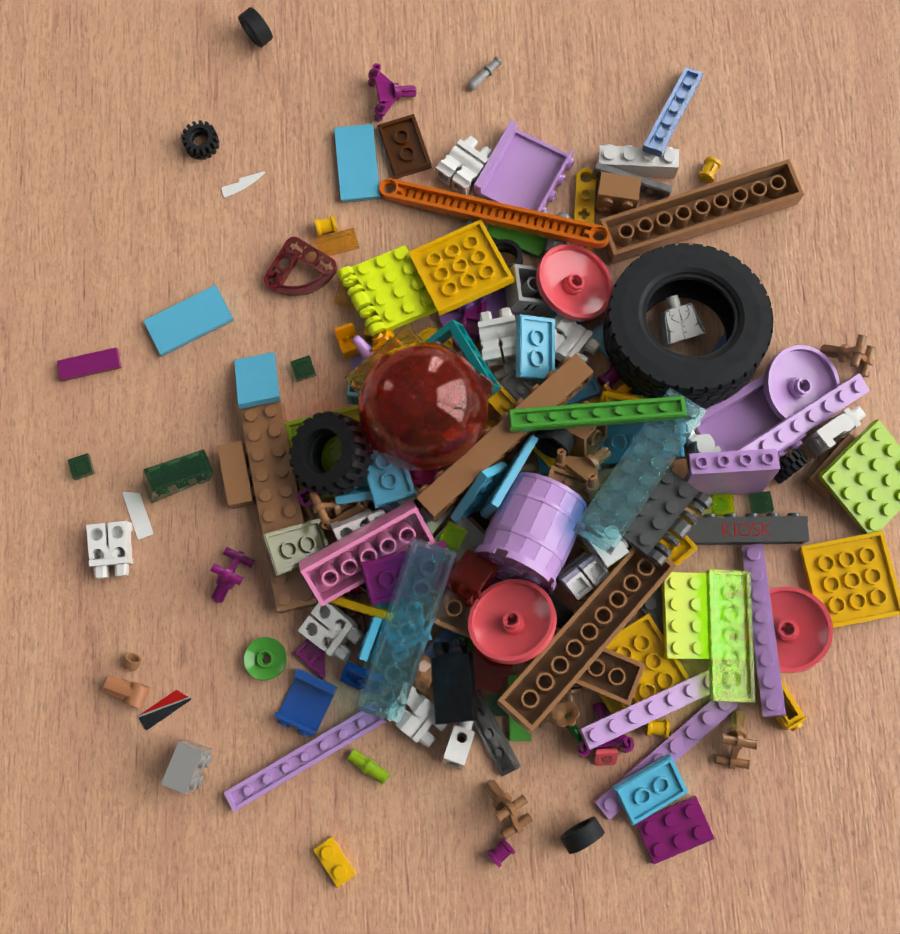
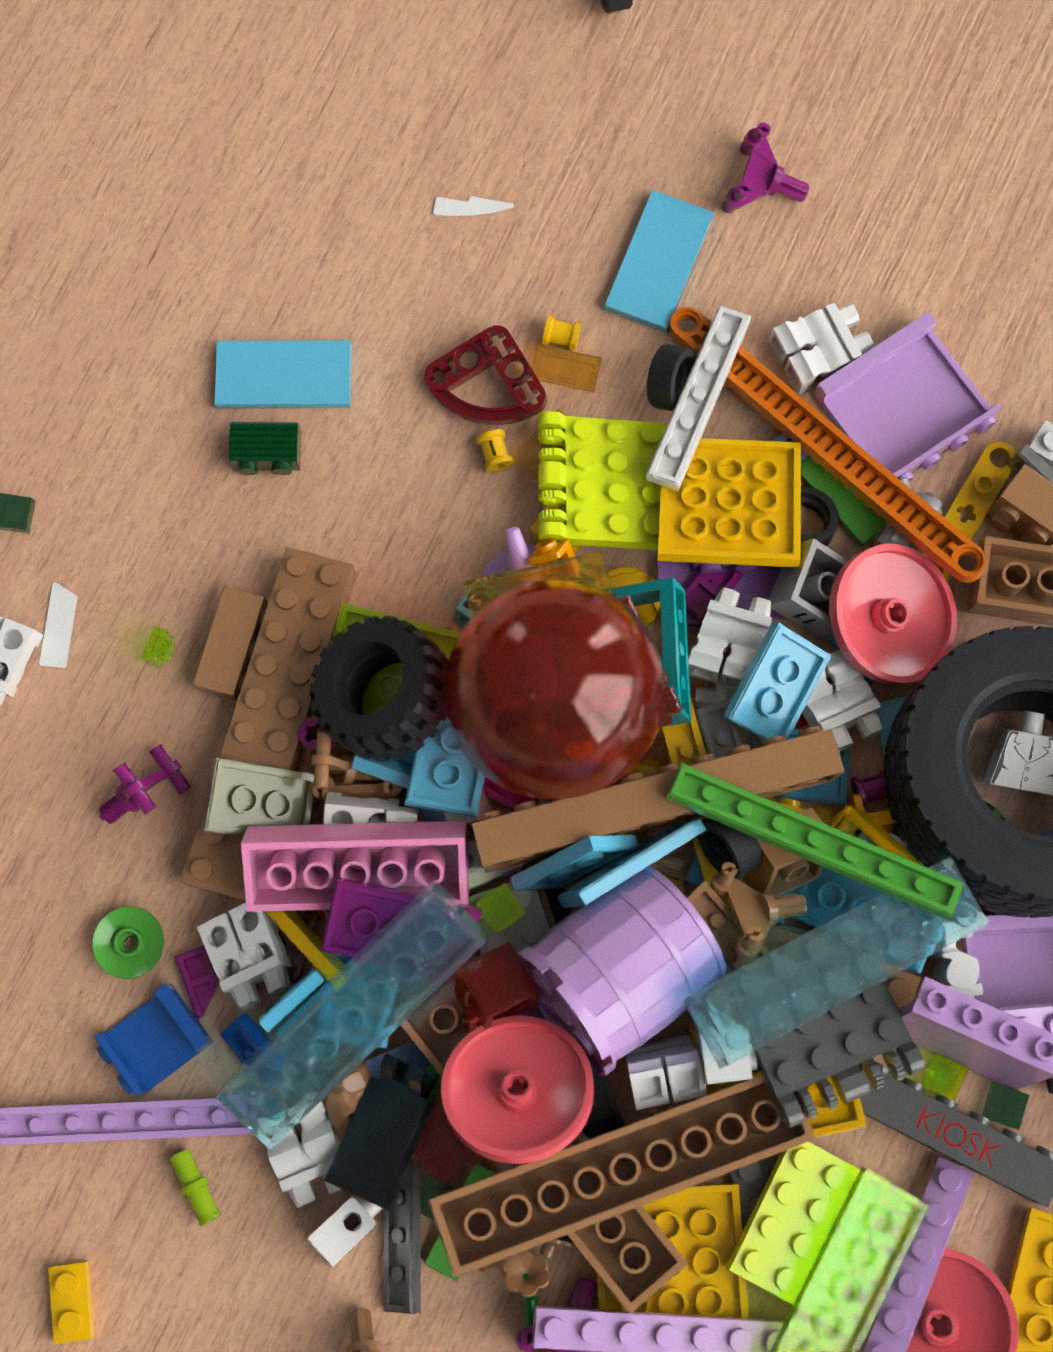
camera: 25 degrees right, 0 degrees up
(89, 364) = (104, 366): magenta tile -> none
(176, 475) = (143, 599): clear green wedge -> none
(197, 130) = (442, 93): black tyre -> none
(199, 363) = (265, 447): none -> dark green brick
(199, 496) = (159, 647): none -> clear neon green plate
(257, 380) = (334, 517): medium azure tile -> none
(303, 368) = (414, 533): clear green tile -> none
(317, 301) = (494, 440): none -> yellow bush
(345, 336) = (501, 516): light orange bracket -> none
(396, 219) = (668, 375): none -> black tyre
(404, 146) = (745, 269): reddish brown tile -> none
(416, 222) = (698, 398): none -> white tile
(480, 77) = (918, 221): light grey piece -> none

